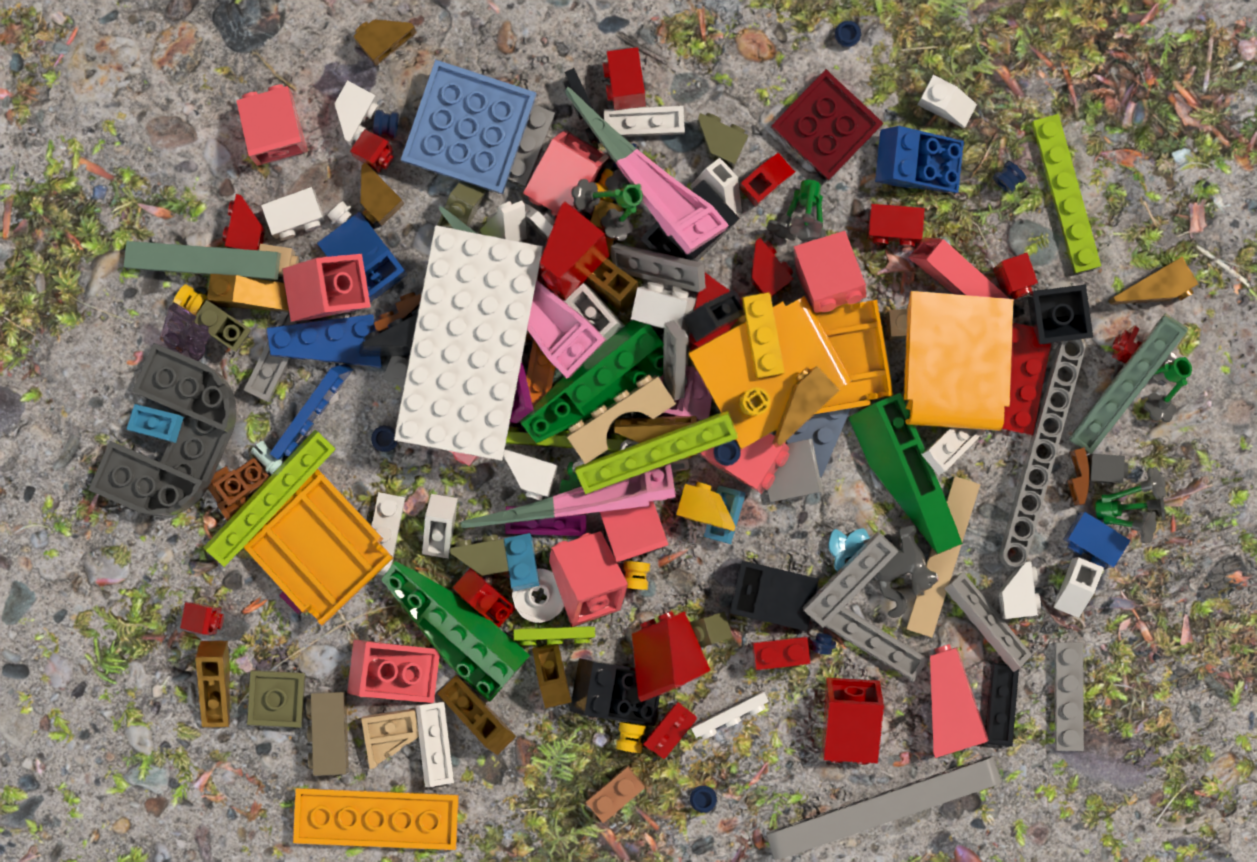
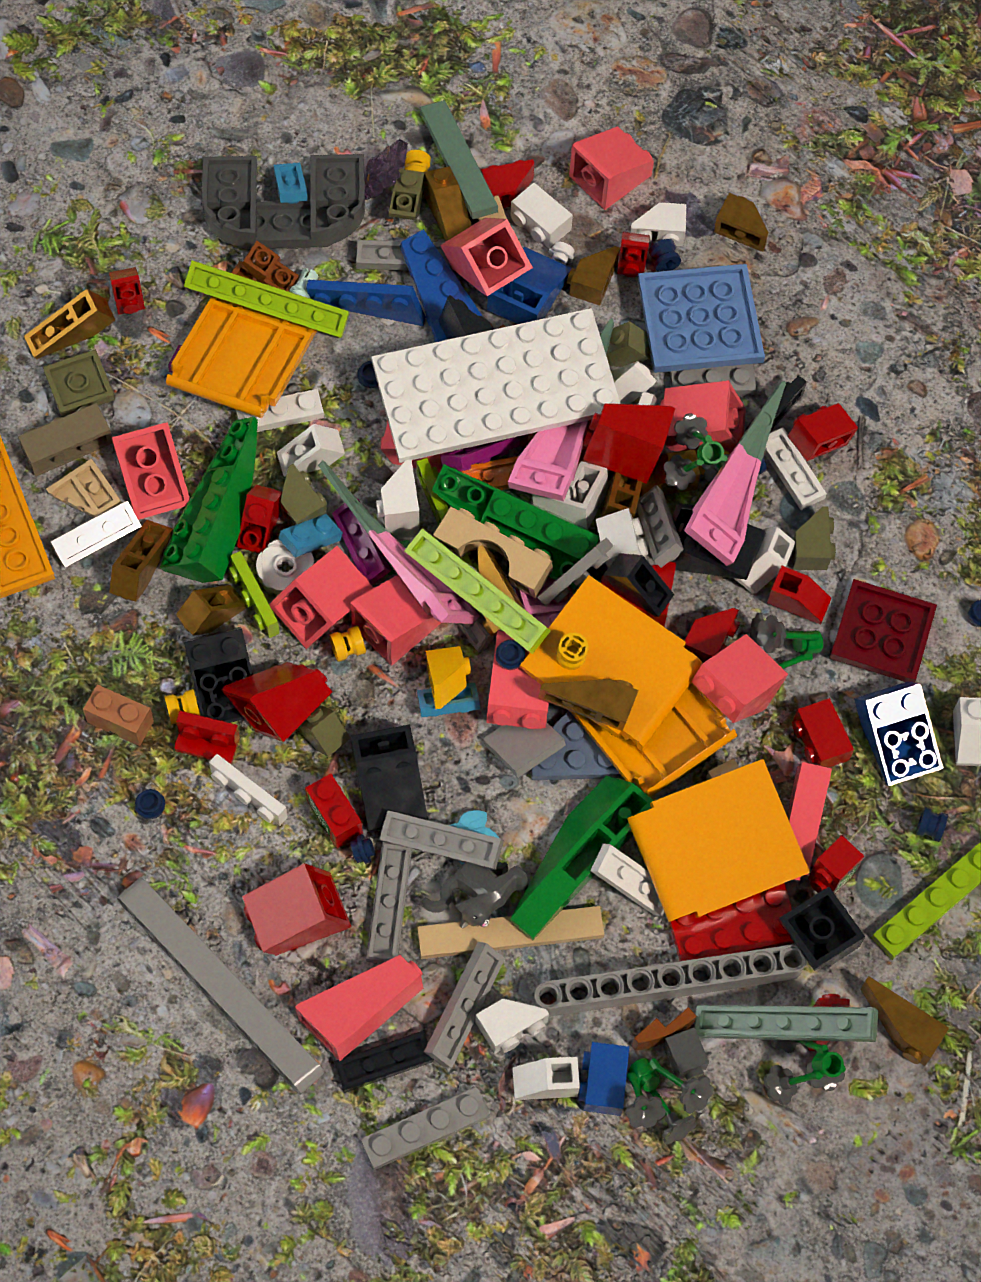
camera: 65 degrees right, 20 degrees down
(763, 335) = (642, 635): yellow plate -> none

